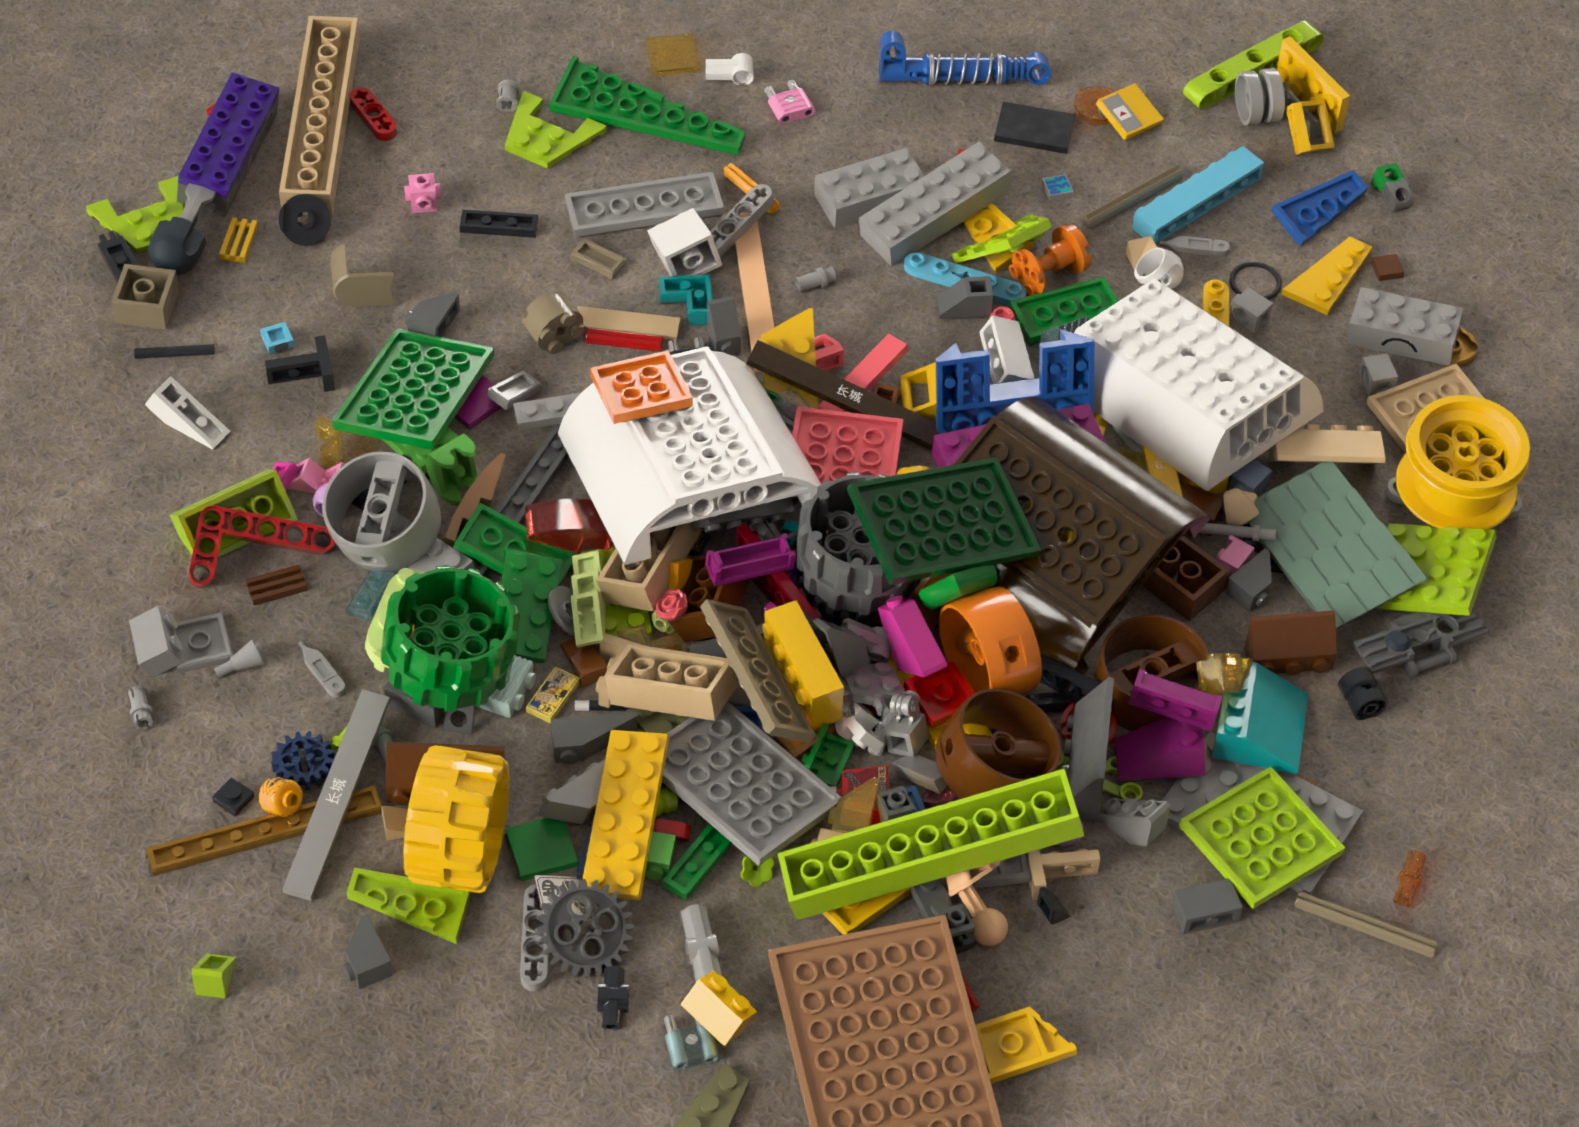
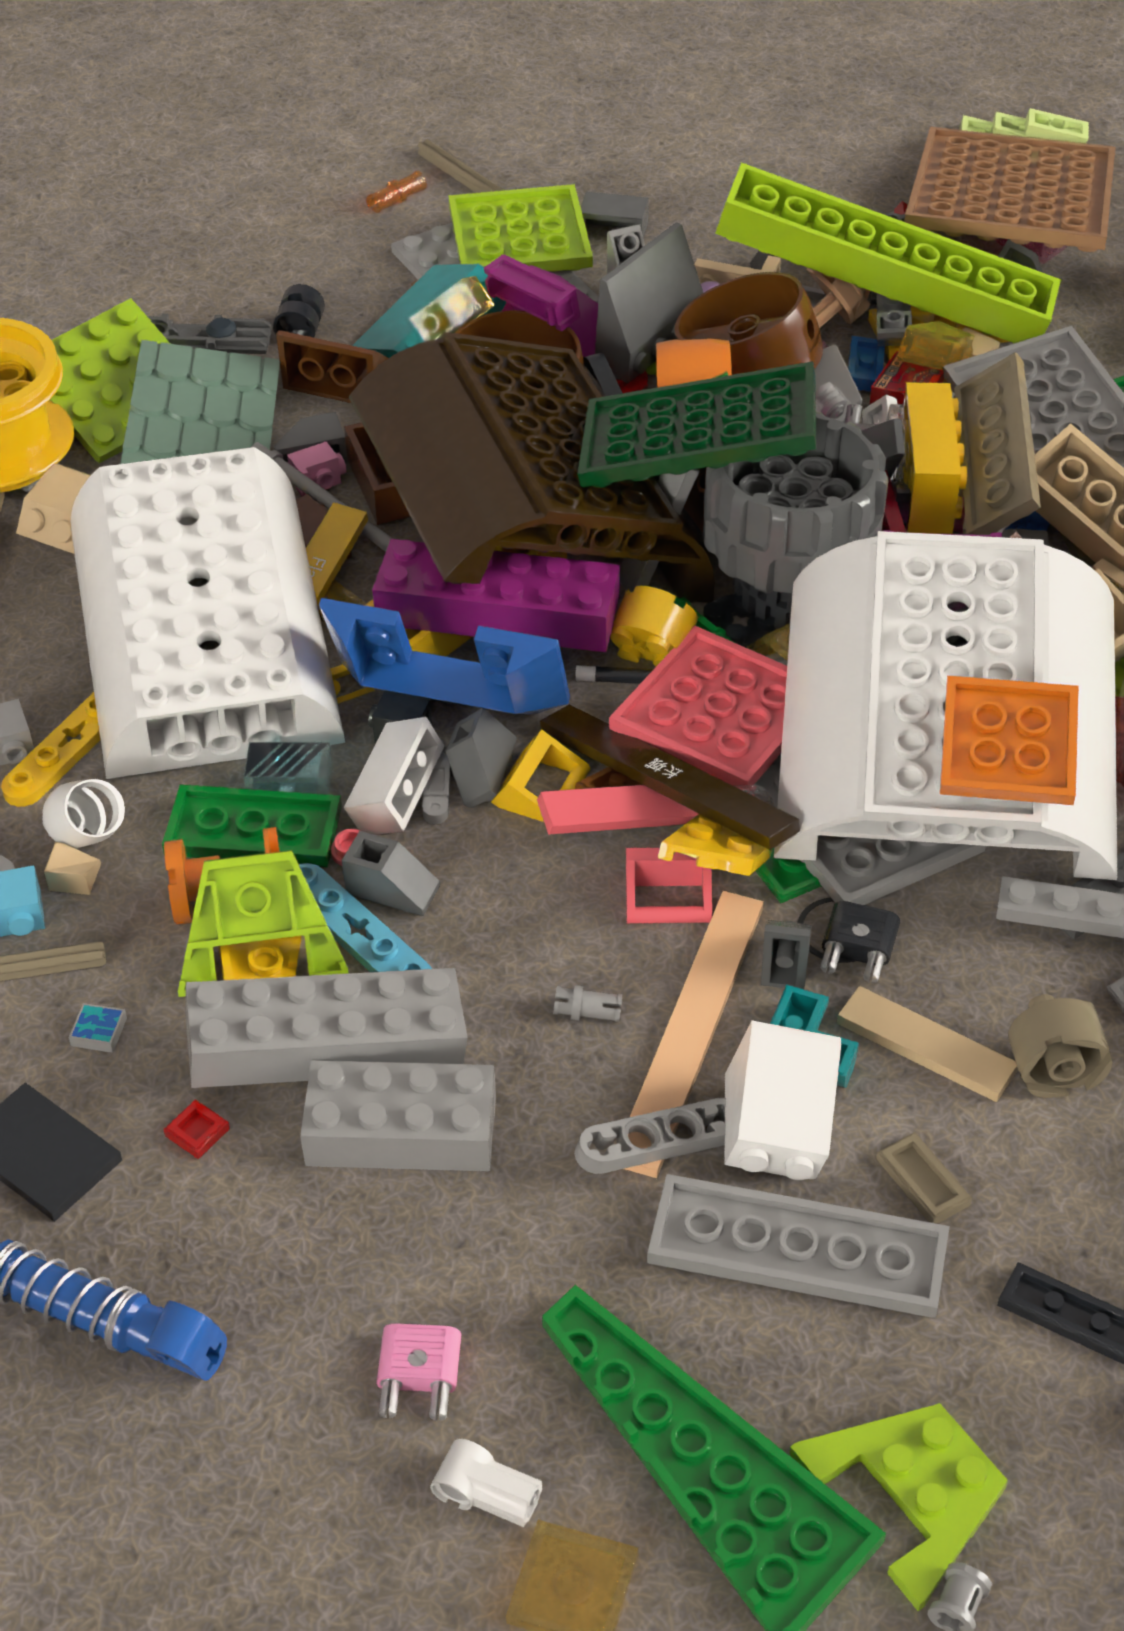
camera: 150 degrees left, 5 degrees down
(623, 339) = (945, 1015): red axle -> none
(745, 183) = (593, 1218): light orange axle -> none
(1020, 1044) = (870, 179): yellow wing -> none

